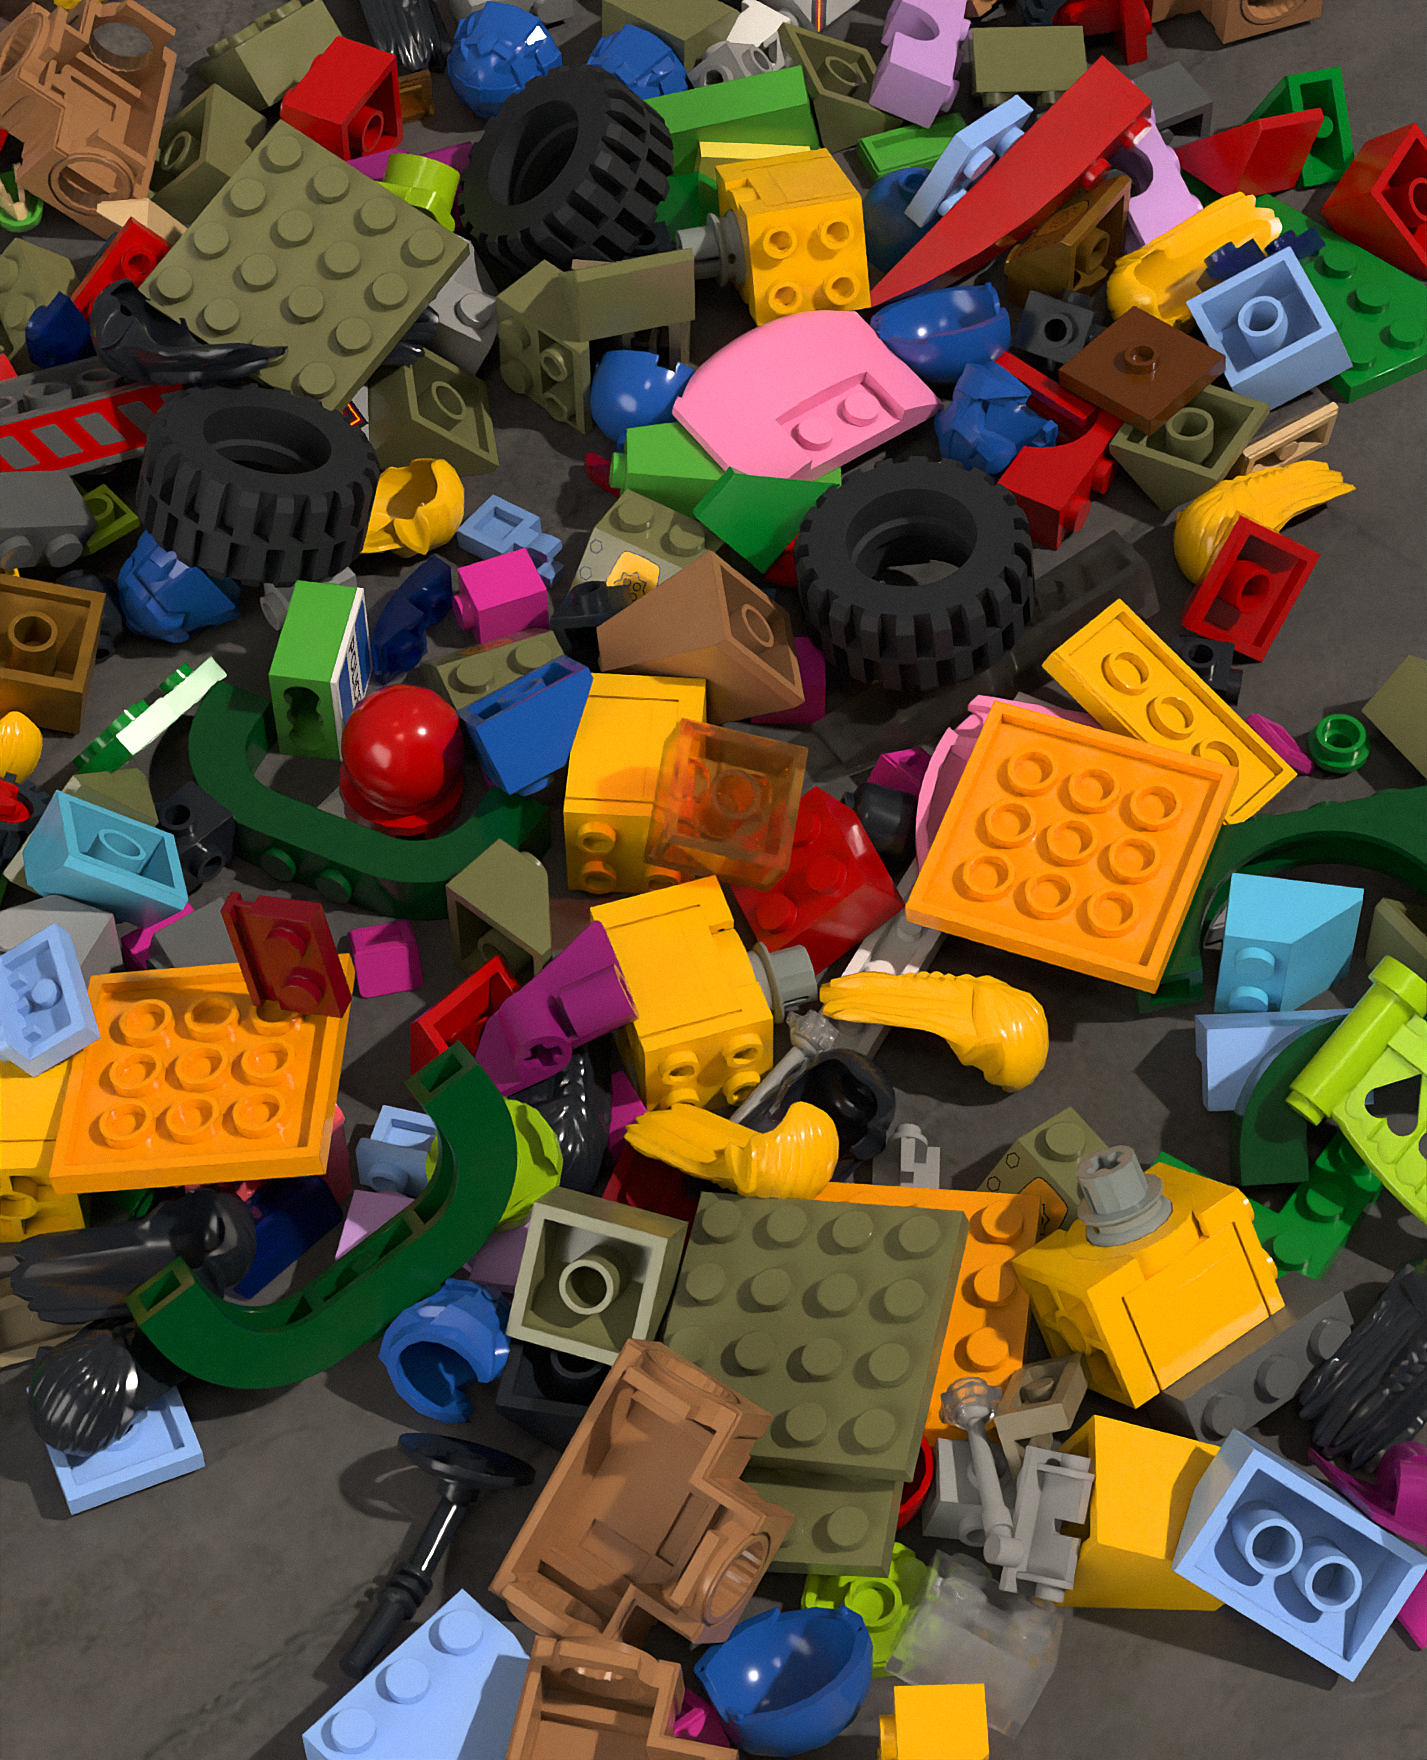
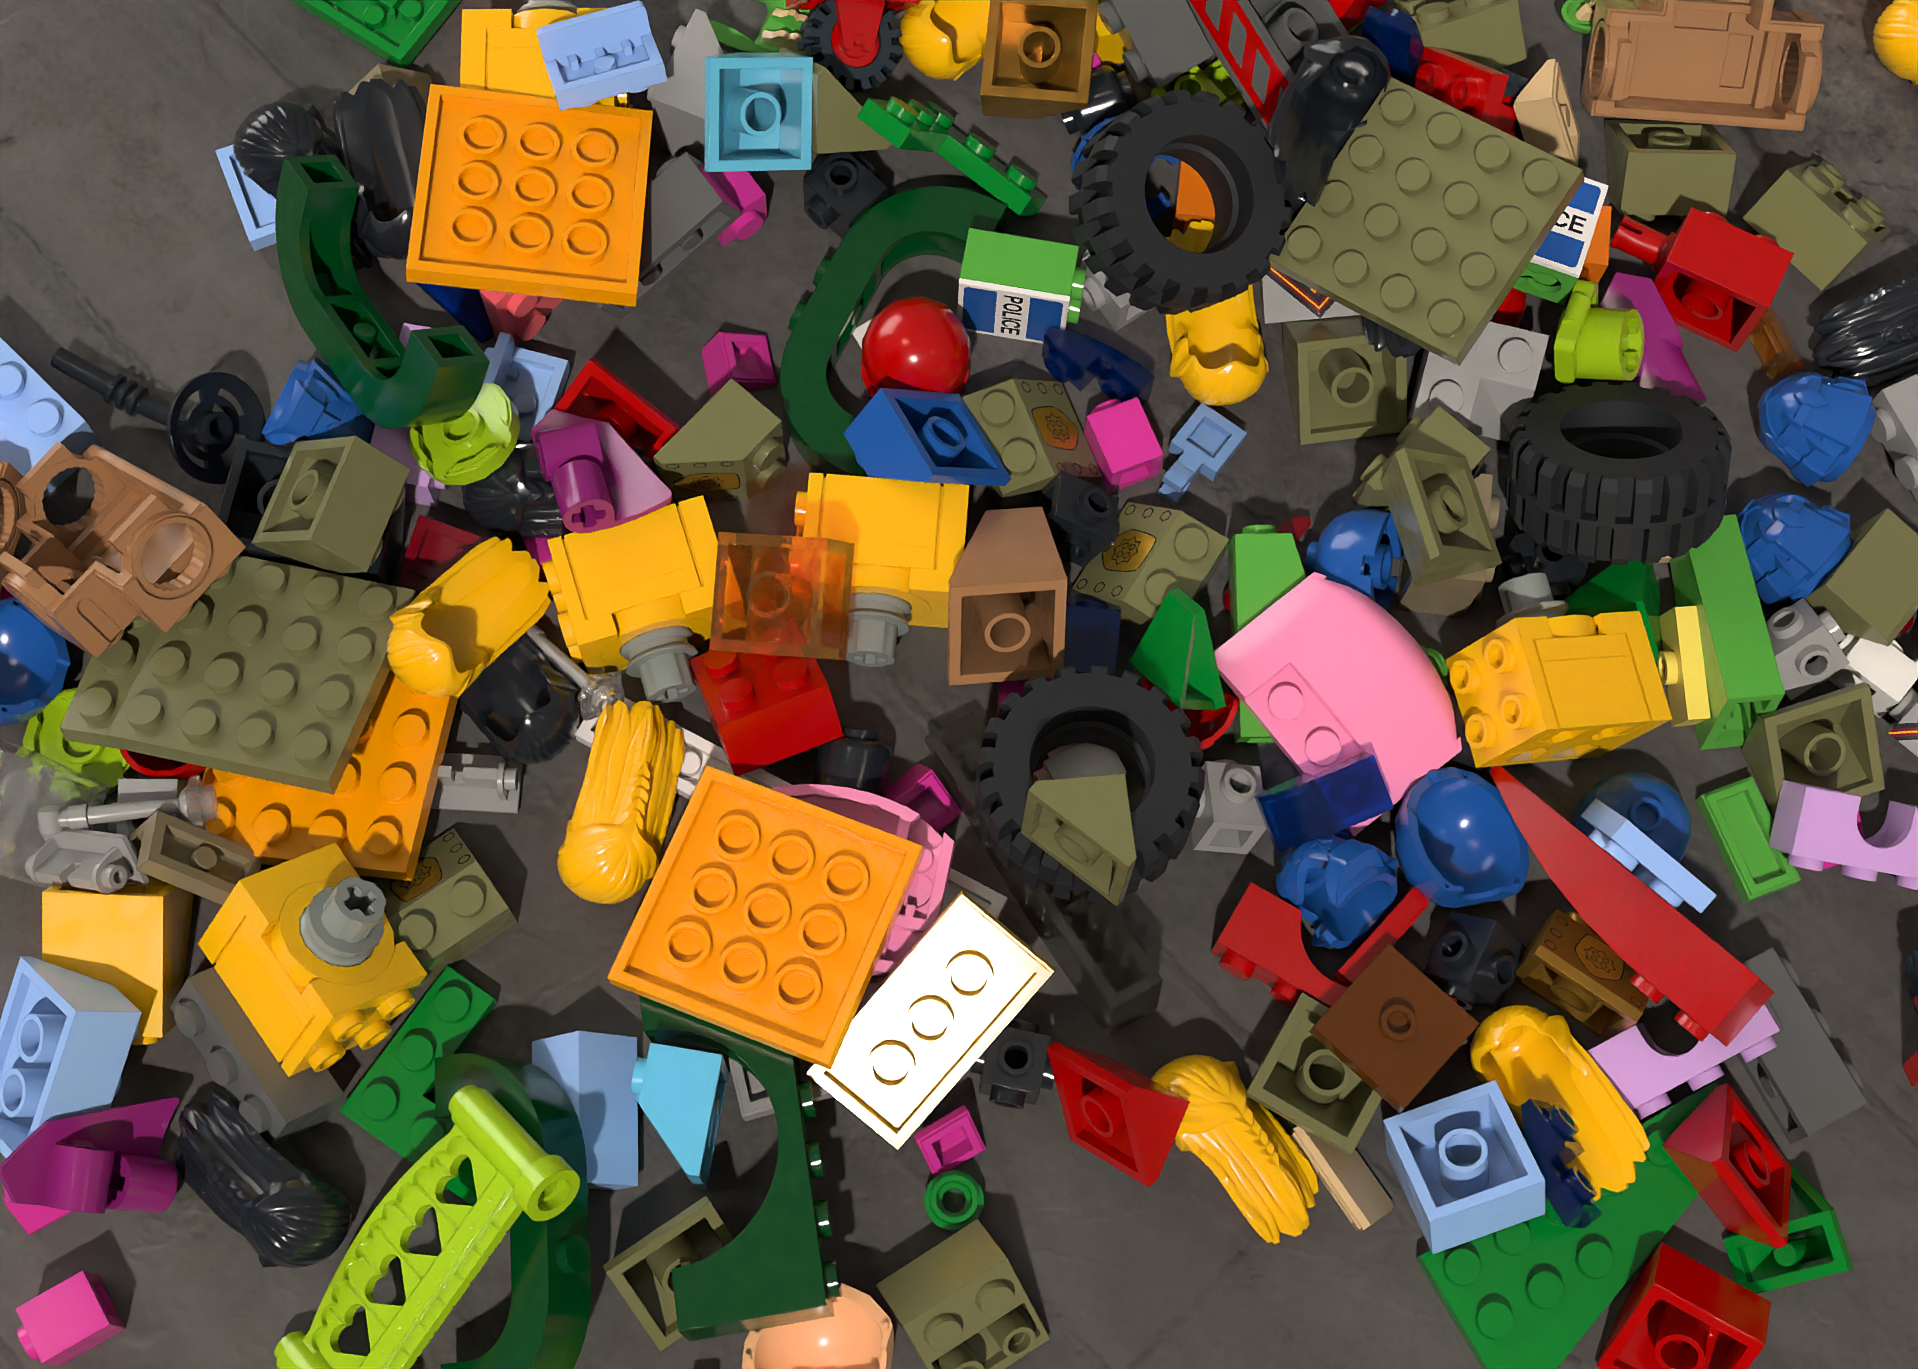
camera: 85 degrees right, 20 degrees up
(287, 954) = (585, 225): dark red plate -> none
(925, 407) = (1324, 803): none -> clear blue slope
(1011, 489) = (1085, 829): none -> olive slope
(1024, 63) = (1848, 941): olive slope -> none

